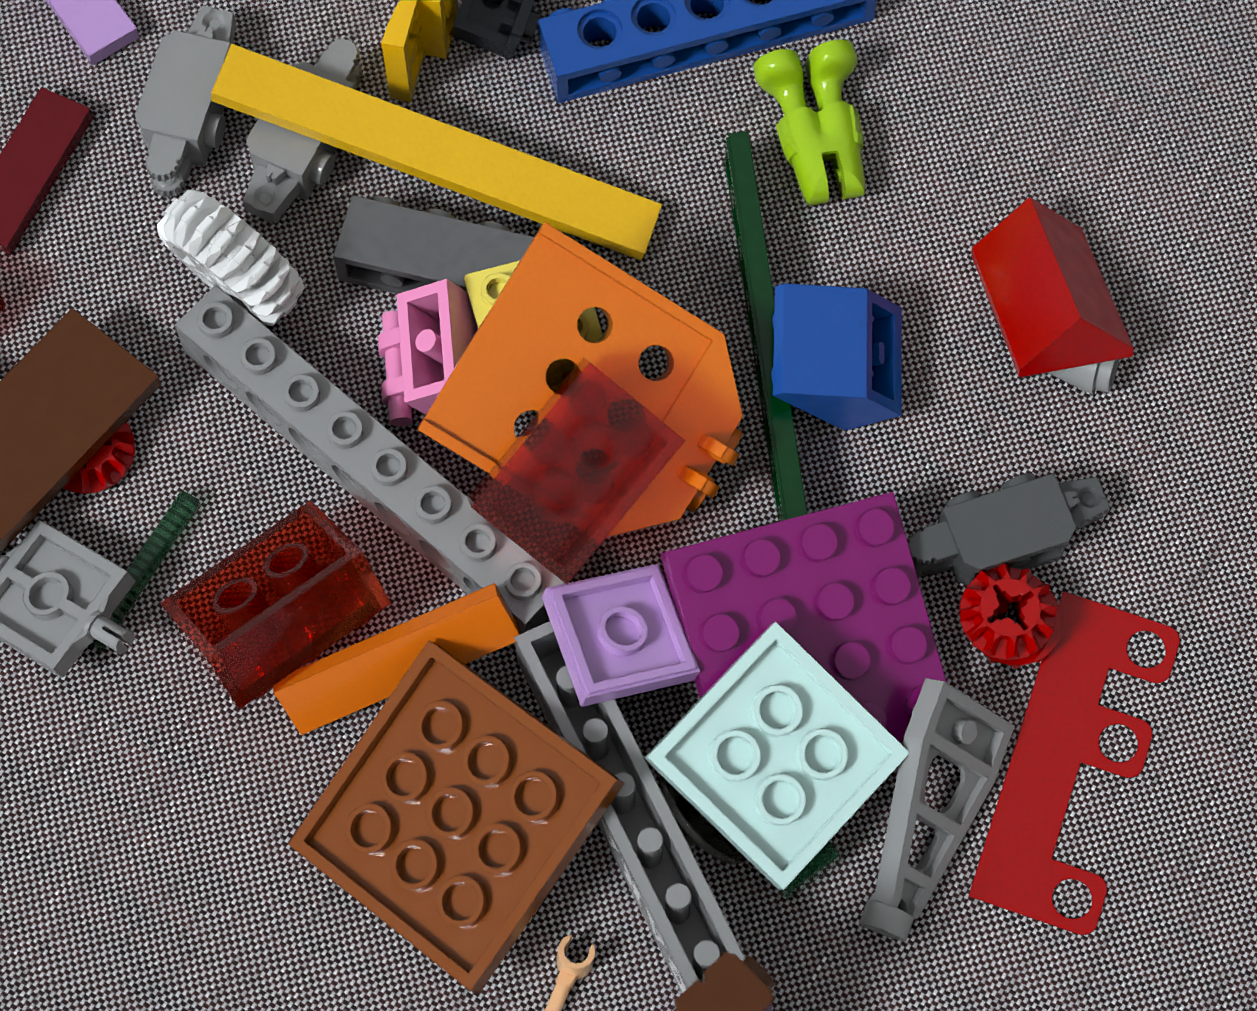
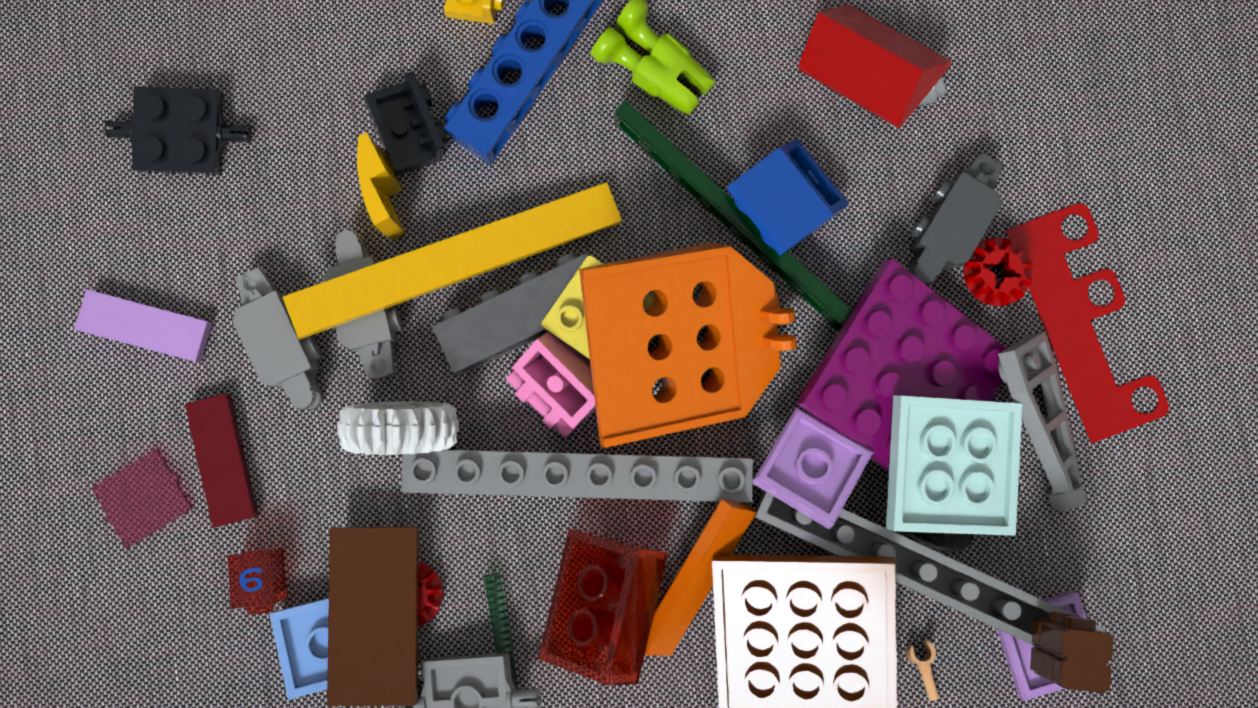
camera: 40 degrees left, 15 degrees up
(575, 471) = (717, 400): clear red brick -> none

